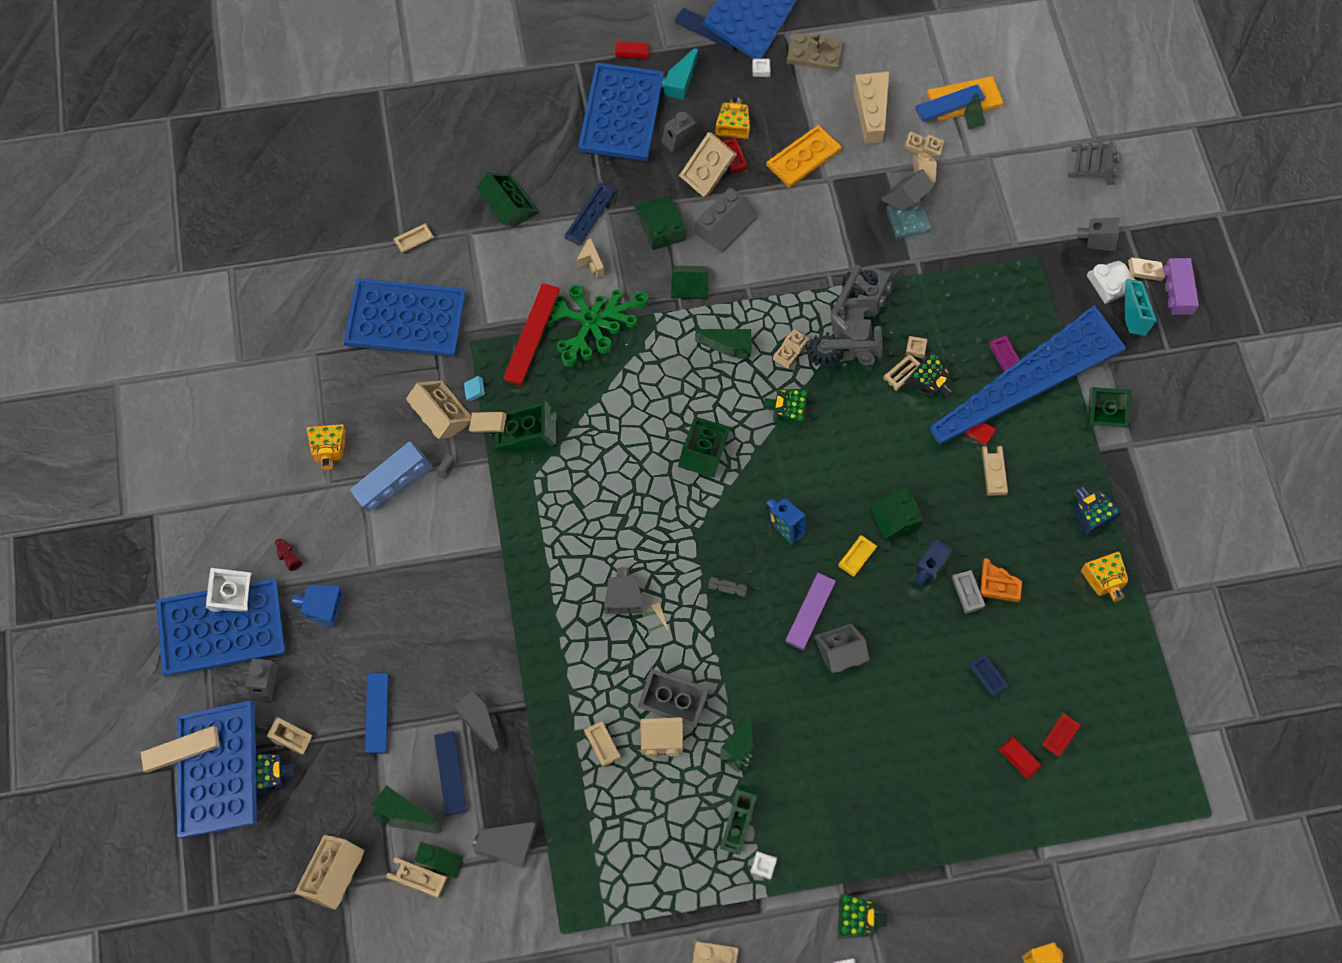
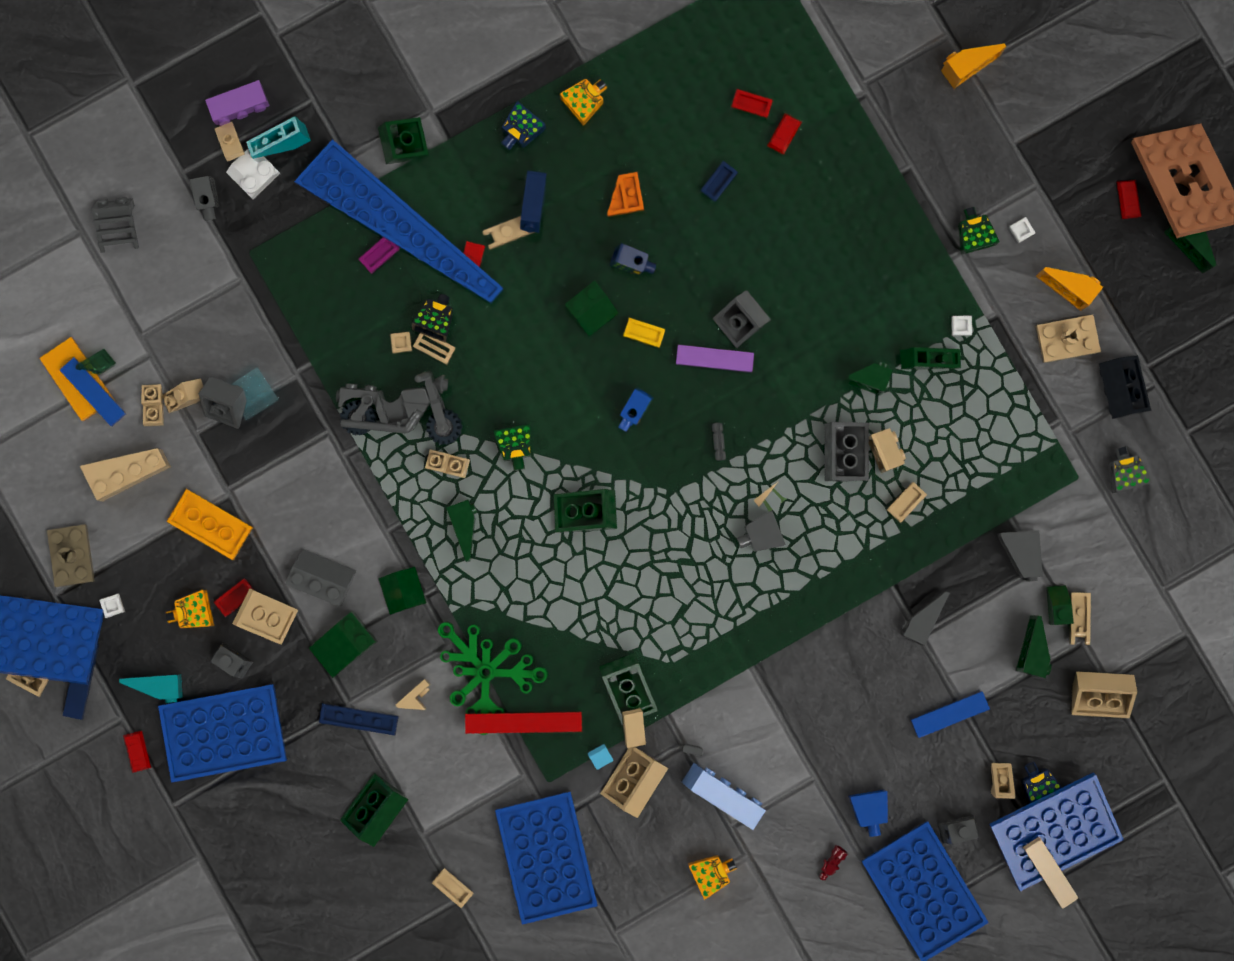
camera: 110 degrees left, 20 degrees up
(227, 590) = (894, 897): white slope -> none
(450, 773) = (979, 627): dark blue tile -> none
(968, 591) = (645, 221): light grey plate -> none
(1016, 491) = (533, 201): none -> dark blue slope

